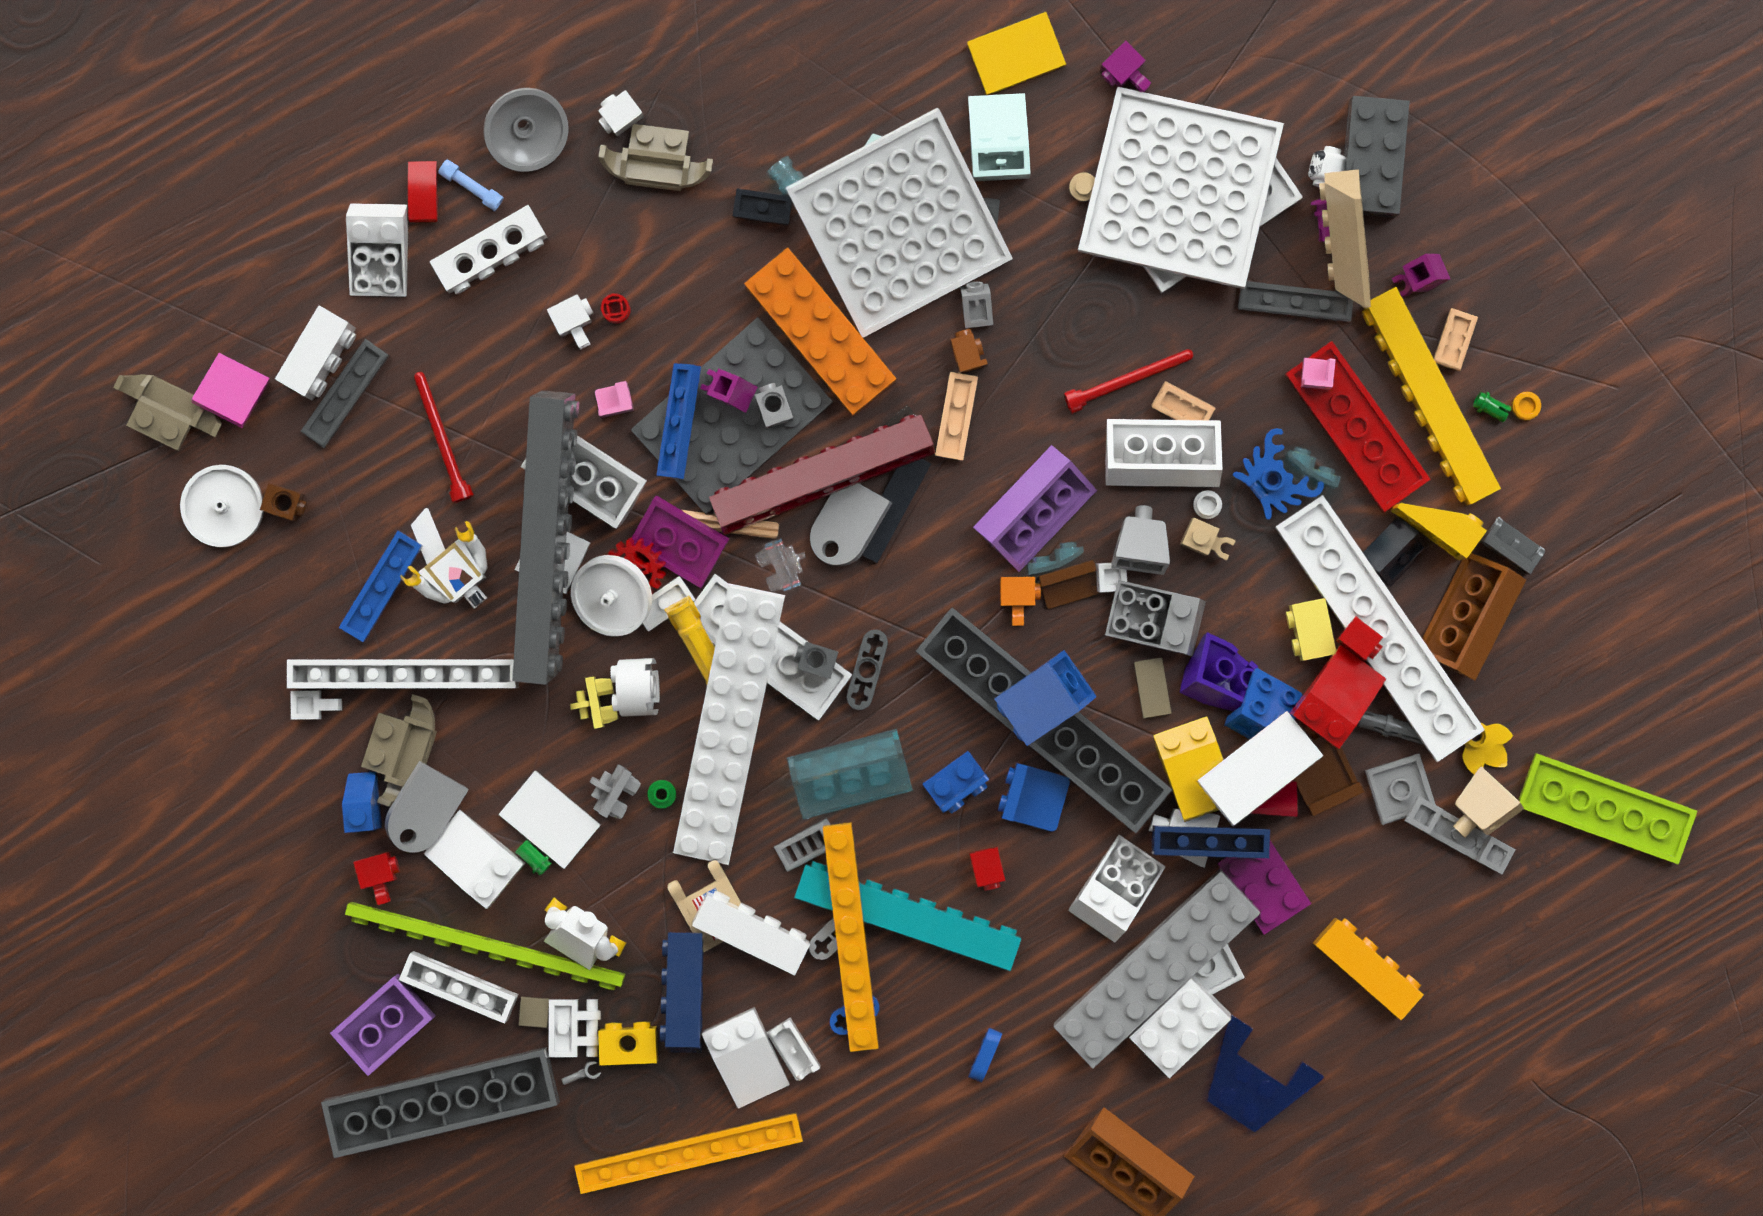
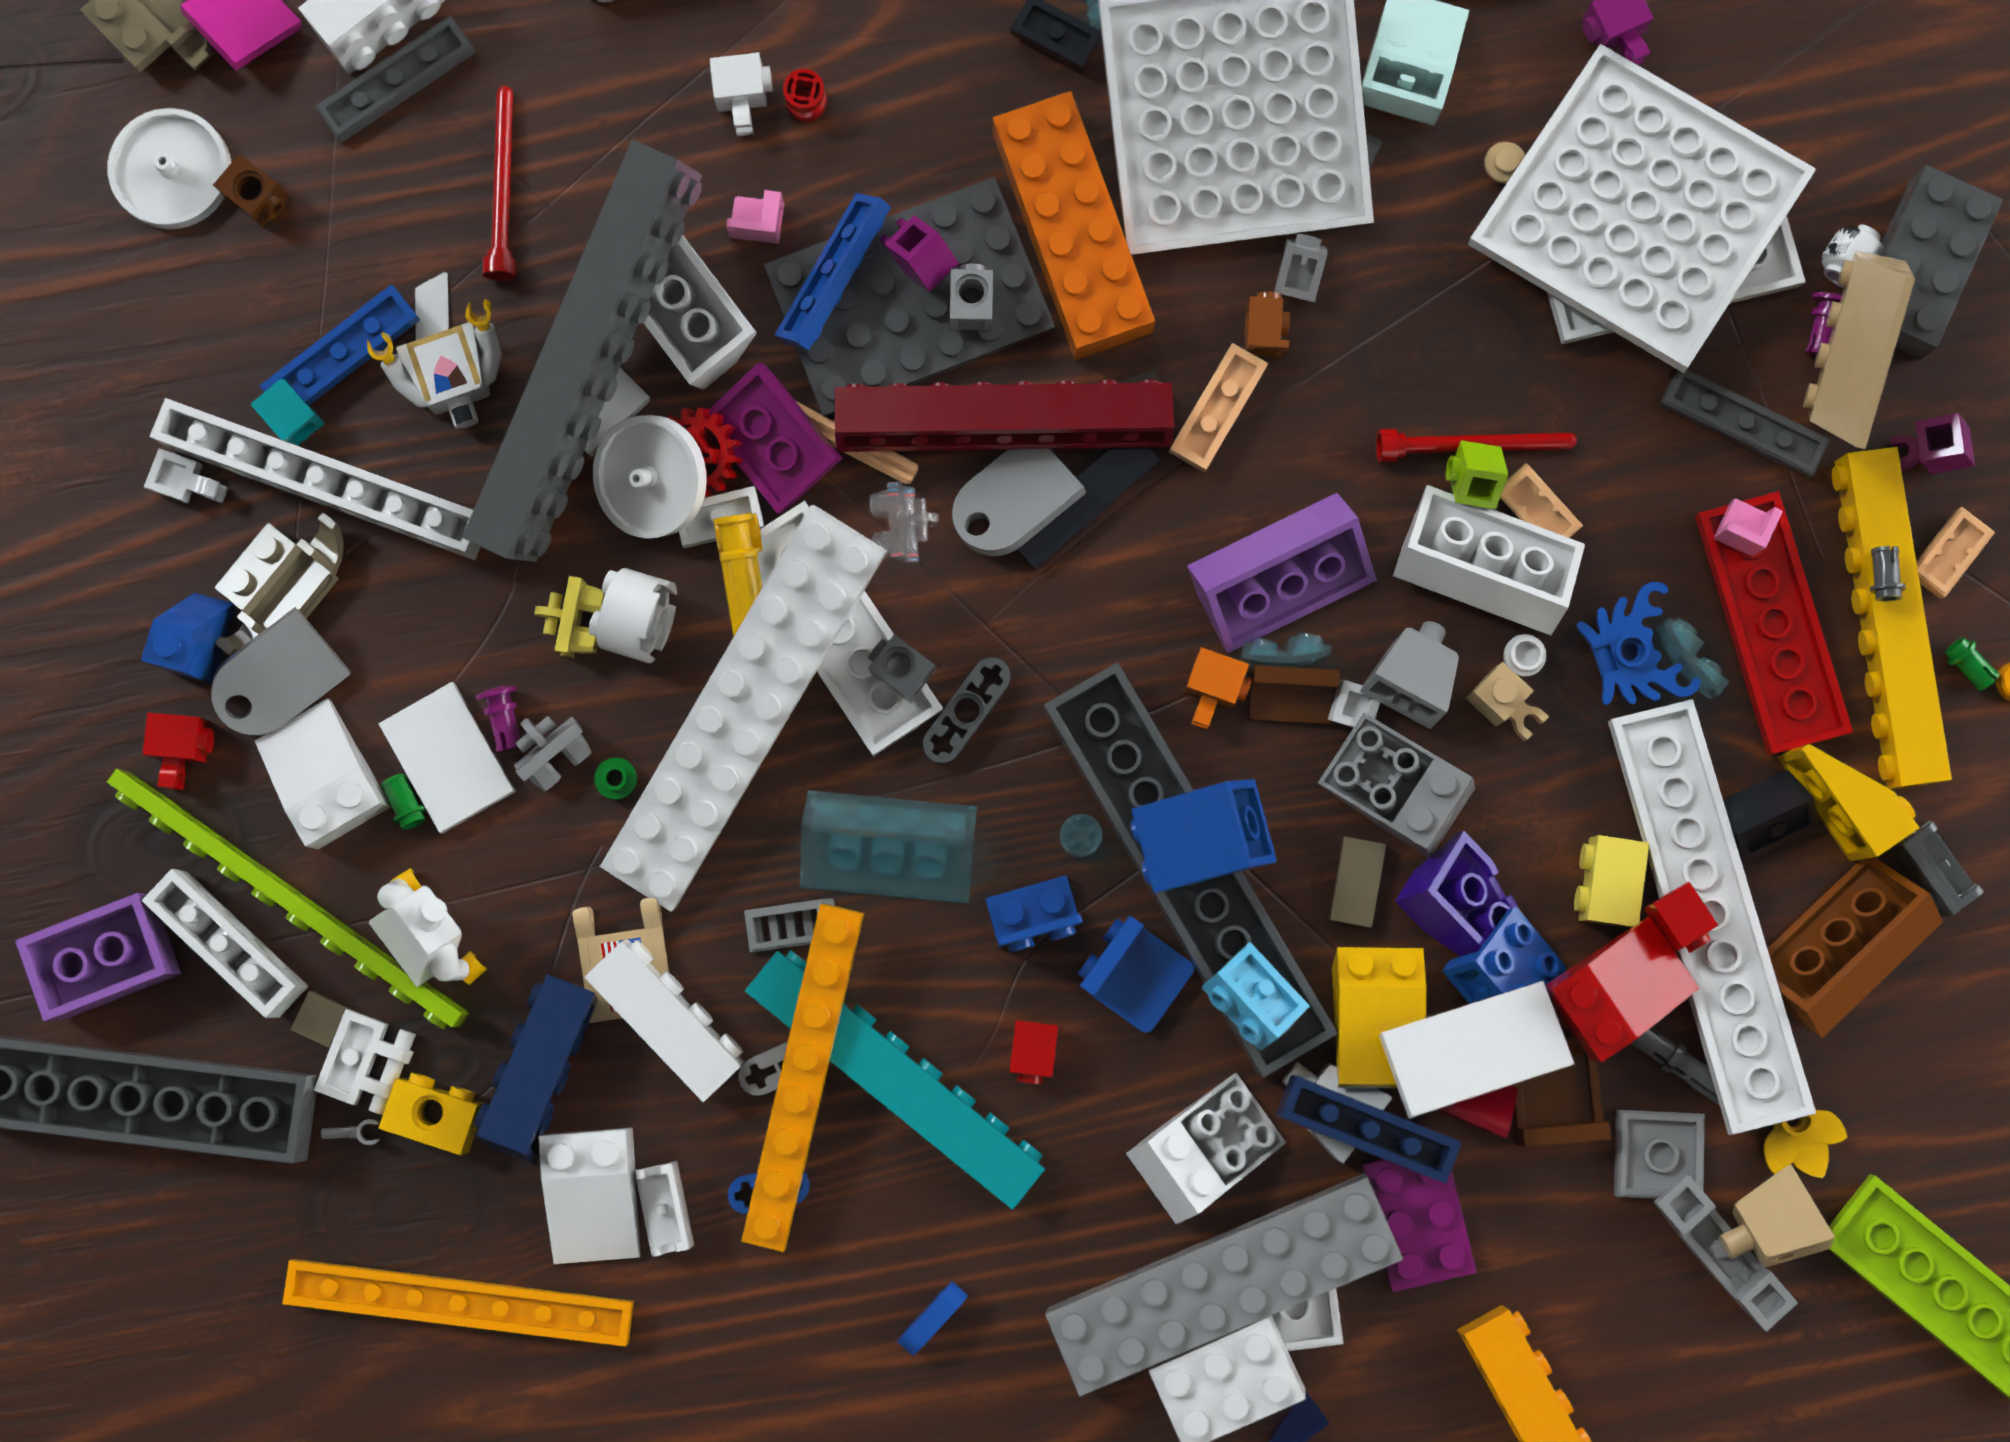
camera: 20 degrees right, 5 degrees down
(363, 638) = (287, 413): none -> teal panel
(575, 781) = (501, 715): none -> magenta pin
(968, 723) = (1080, 830): none -> clear light blue wheel
(1112, 786) = (1255, 997): none -> medium azure bracket
(1136, 401) = (1477, 474): none -> lime brick
(1415, 373) = (1886, 574): none -> dark grey pin

